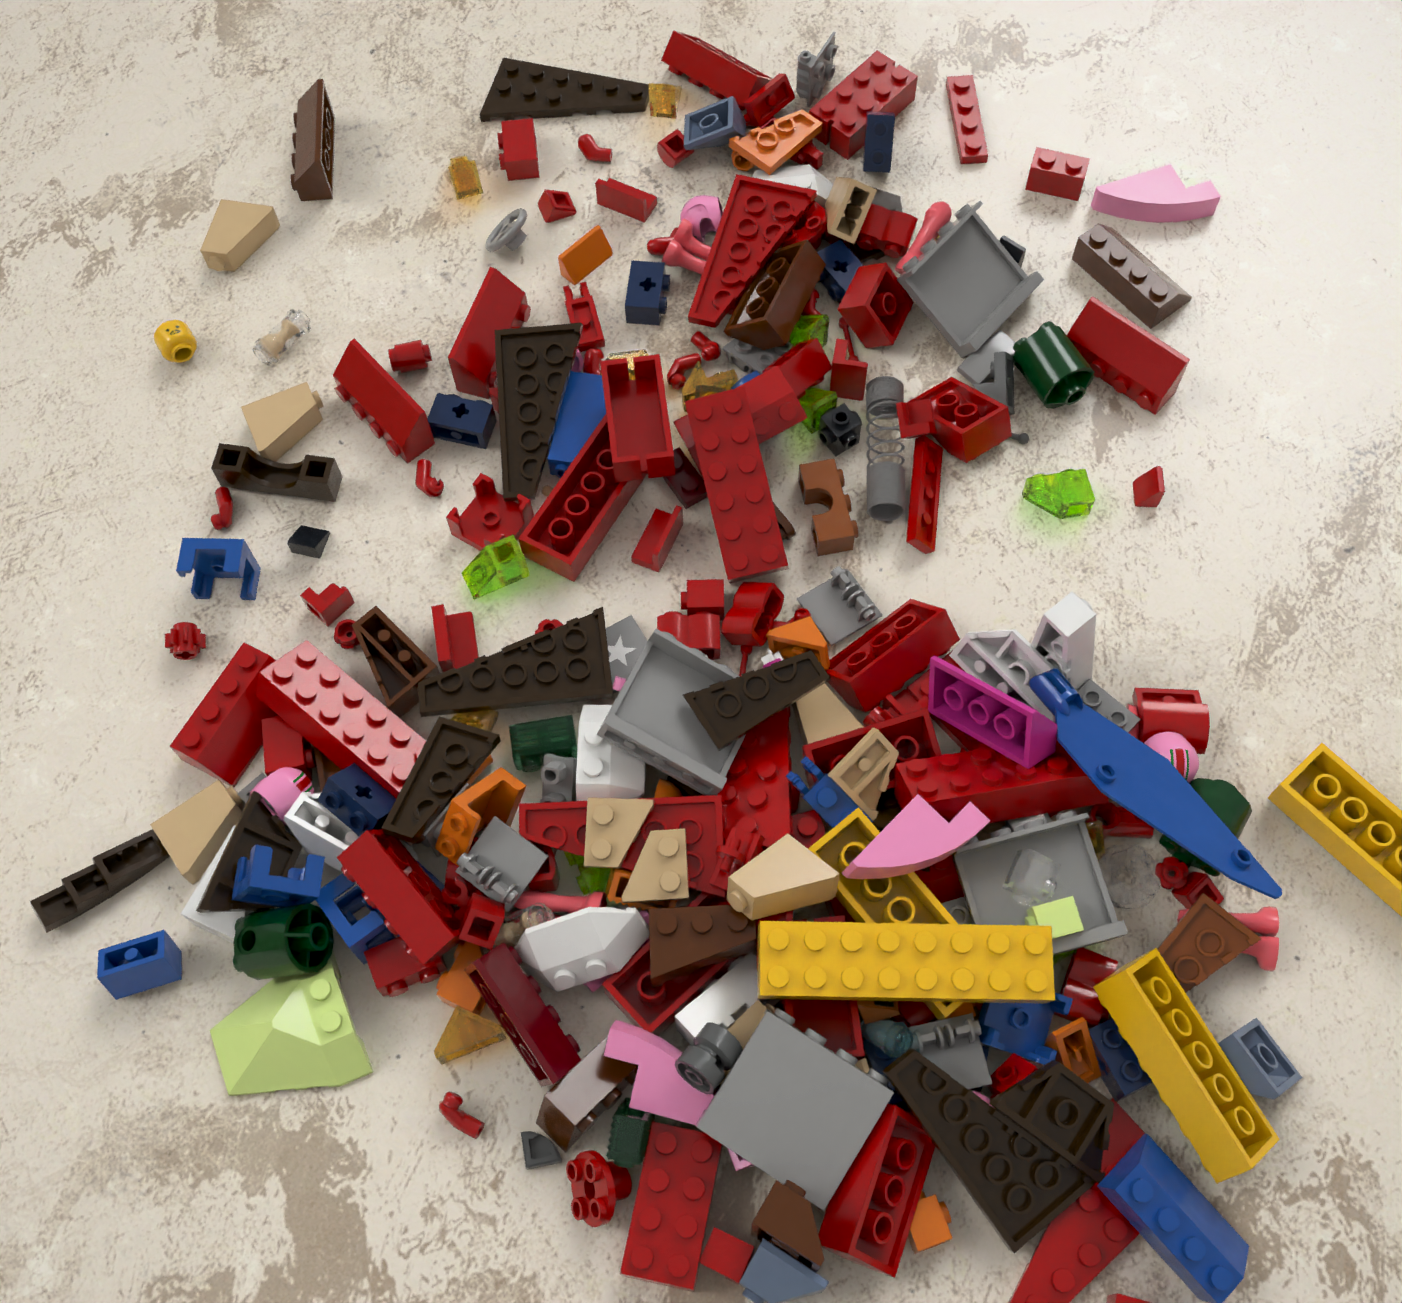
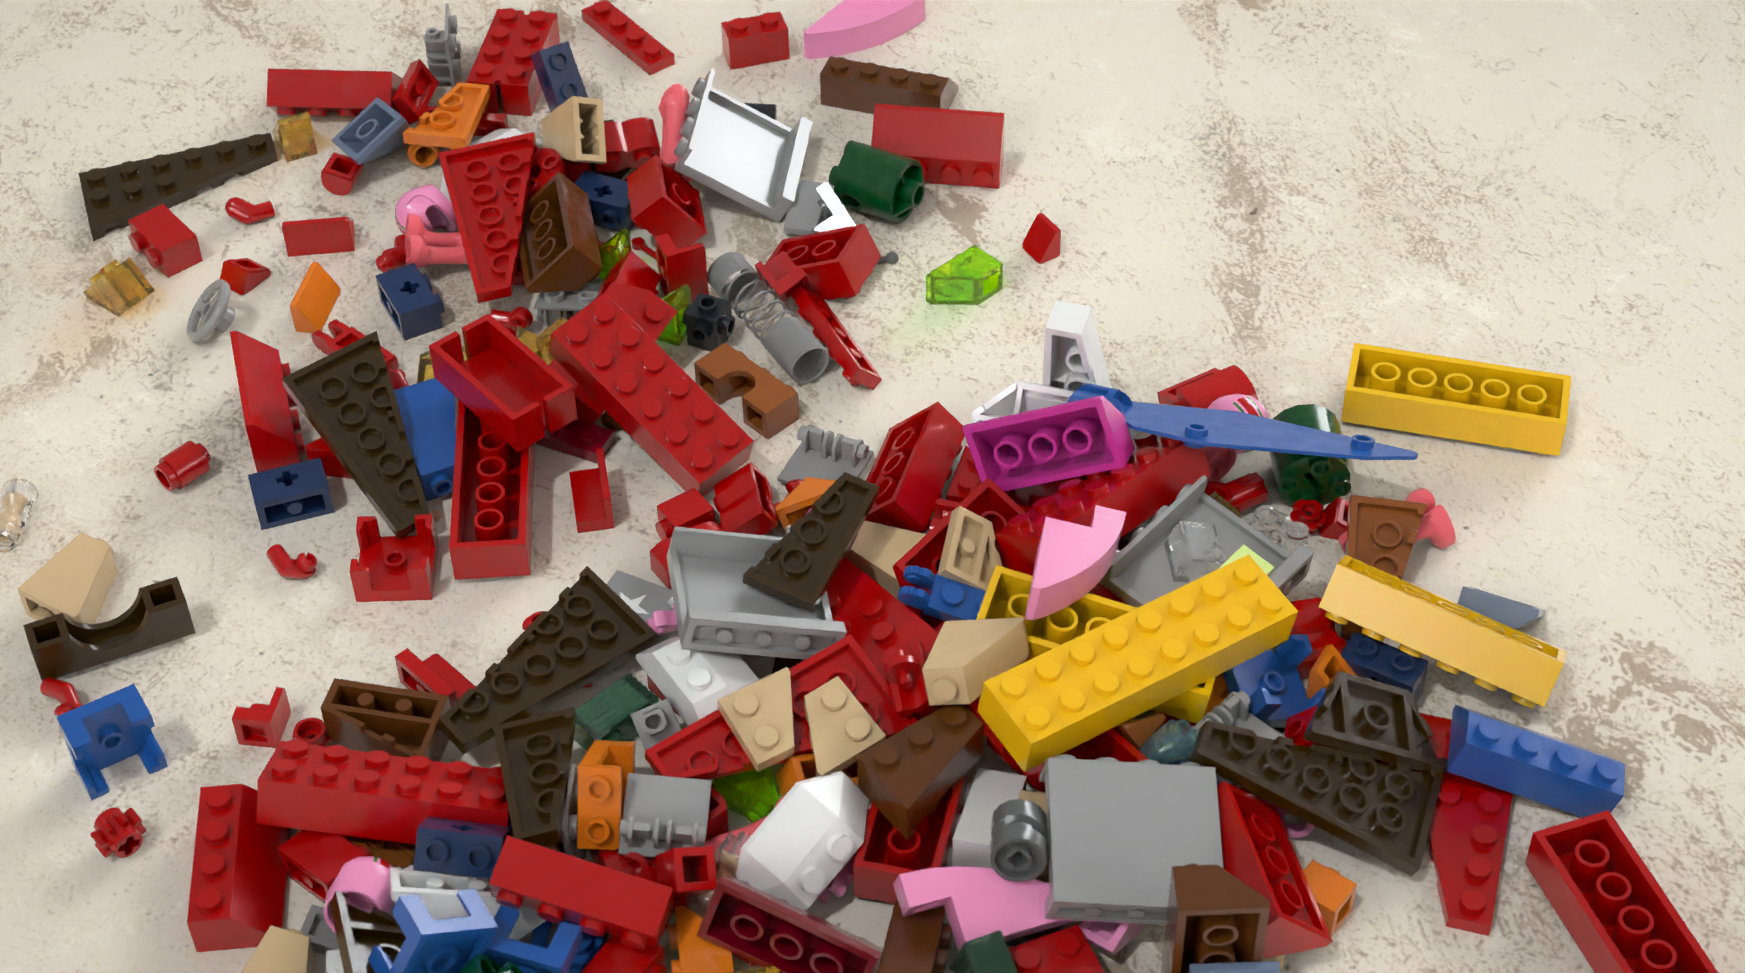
camera: 35 degrees left, 20 degrees down
(308, 541) = (194, 682): black slope -> none
(382, 403) = (188, 510): red slope -> none
(495, 567) = (438, 594): clear neon green slope -> none

